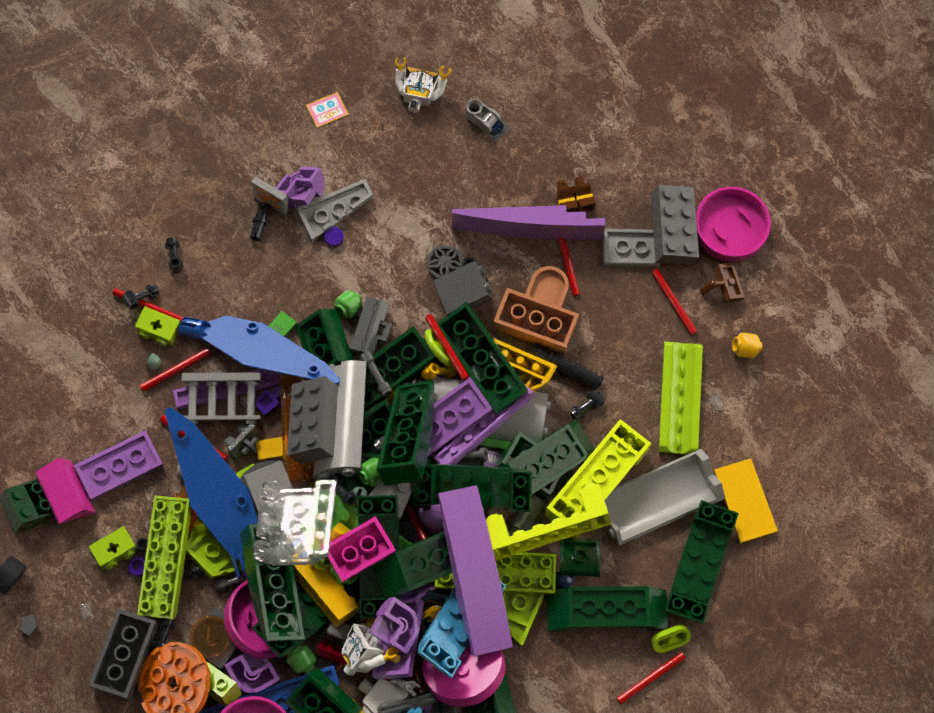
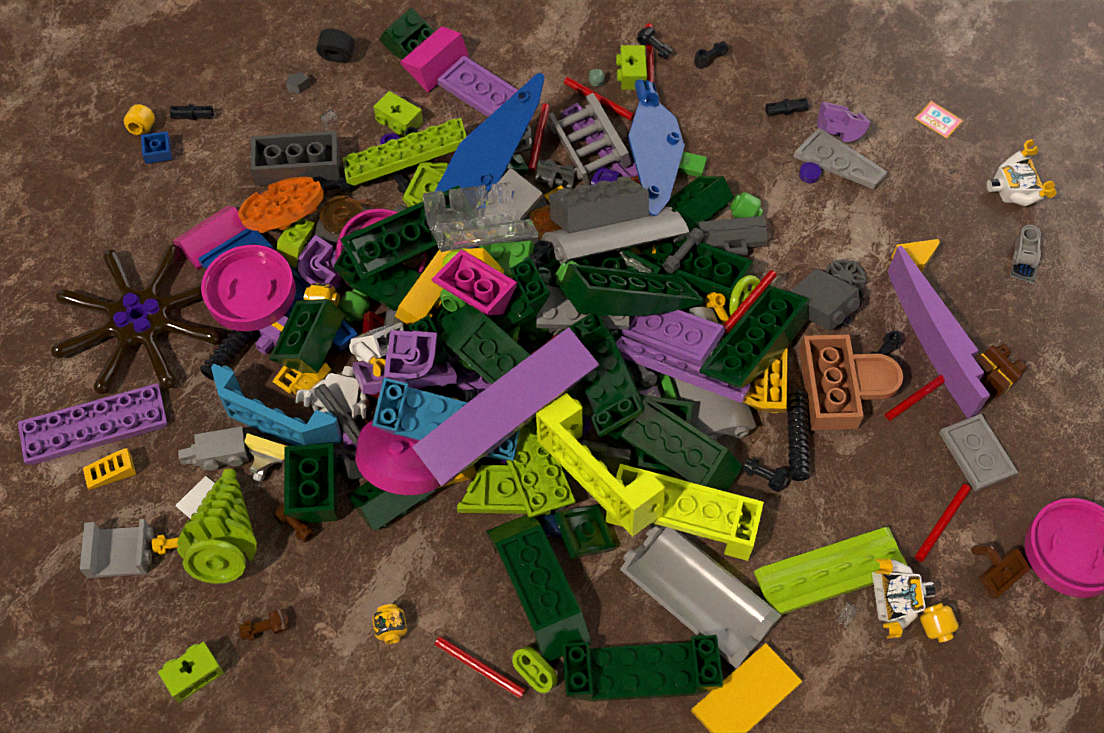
camera: 70 degrees right, 10 degrees down
(270, 195) = (816, 98): light grey tile -> none
(289, 680) = (322, 291): none -> yellow head
(452, 199) = (920, 252): none -> yellow slope
(517, 260) = (891, 343): none -> black bar
(674, 225) = (1033, 482): dark grey brick -> none
(721, 362) = (899, 595): none -> torso

